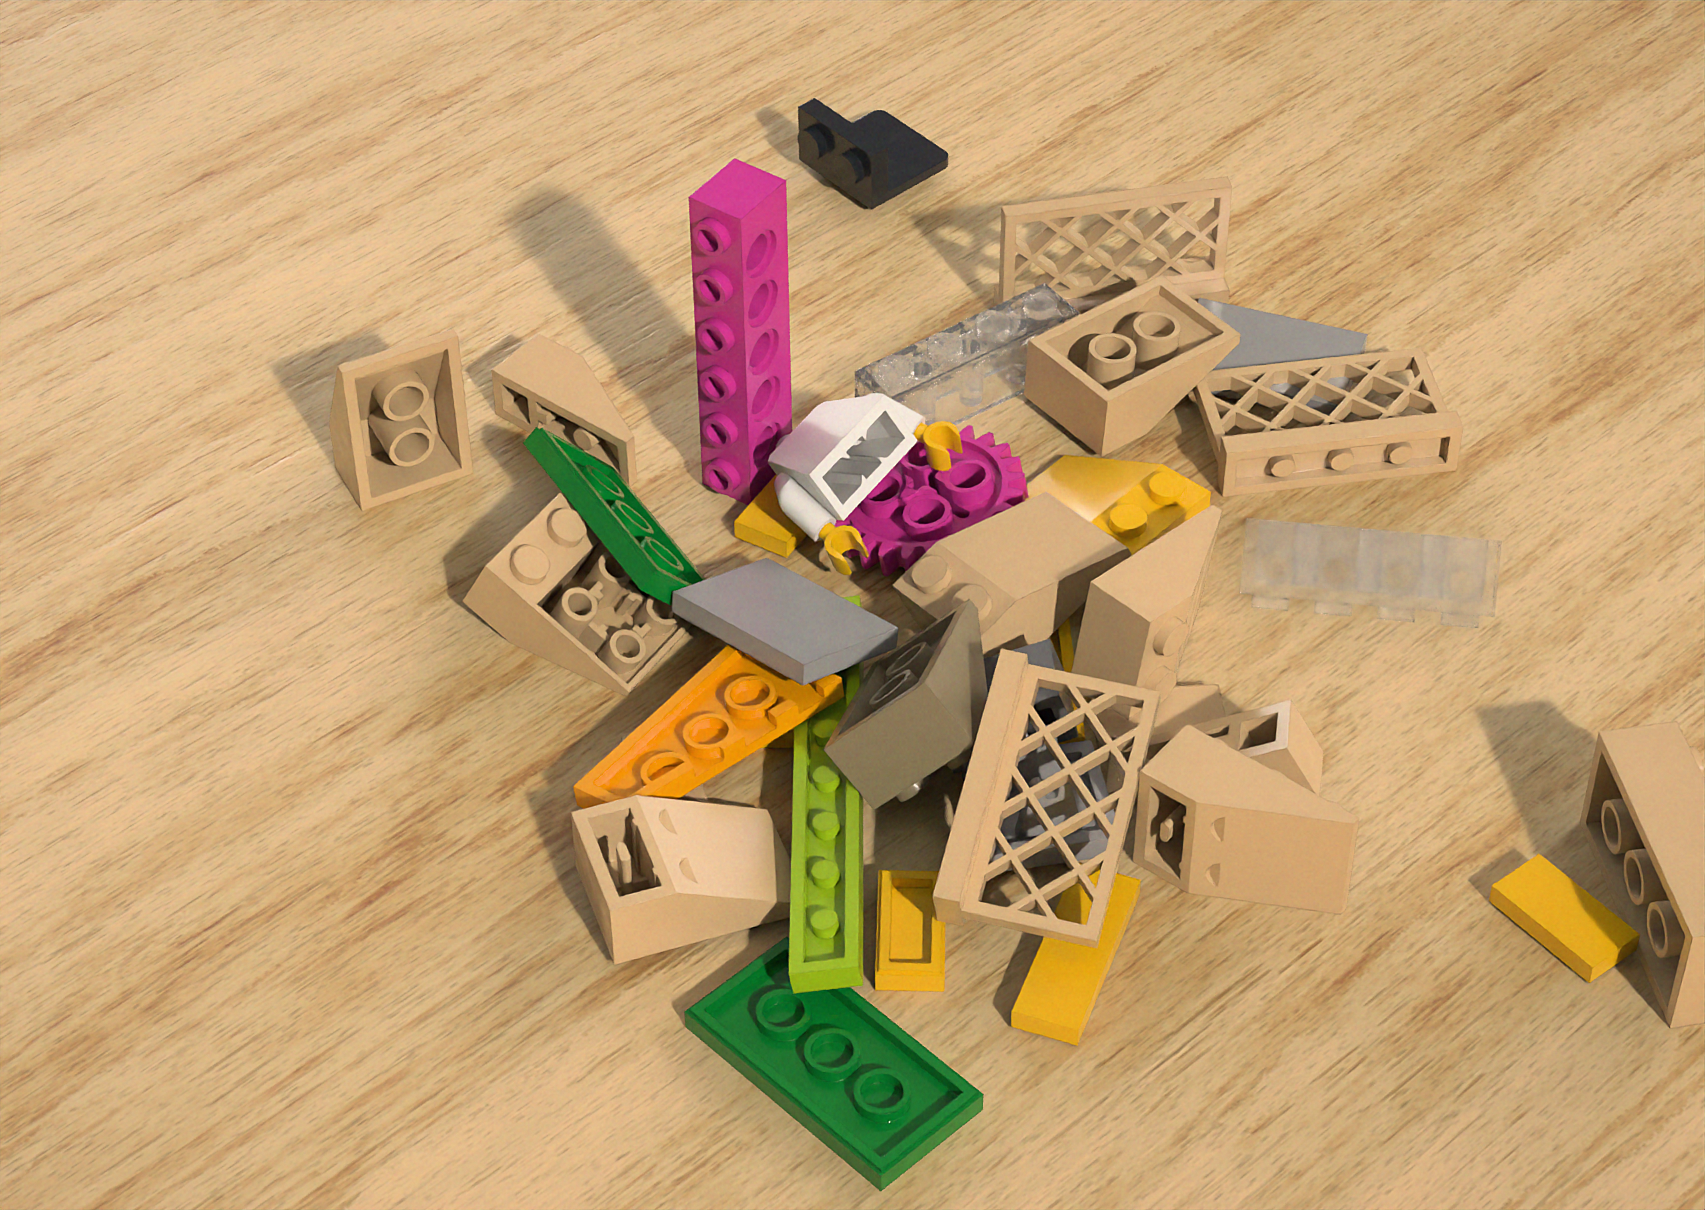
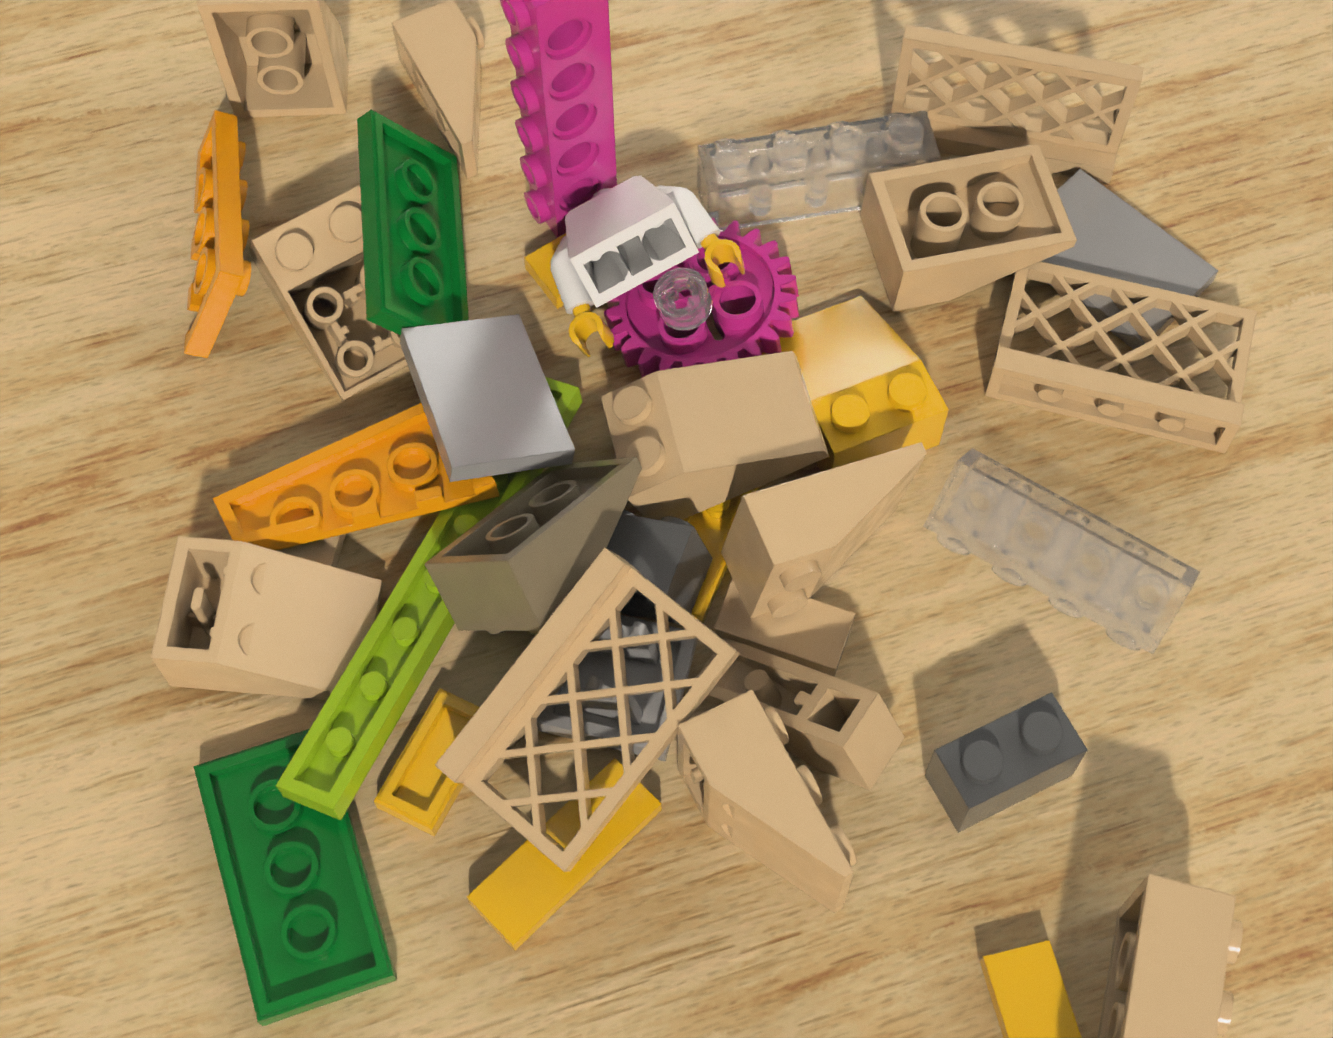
camera: 25 degrees right, 20 degrees up
(429, 590) = (218, 233): none -> light orange wing
(915, 470) = (698, 305): none -> clear bush
(1420, 738) = (1005, 762): none -> dark grey brick

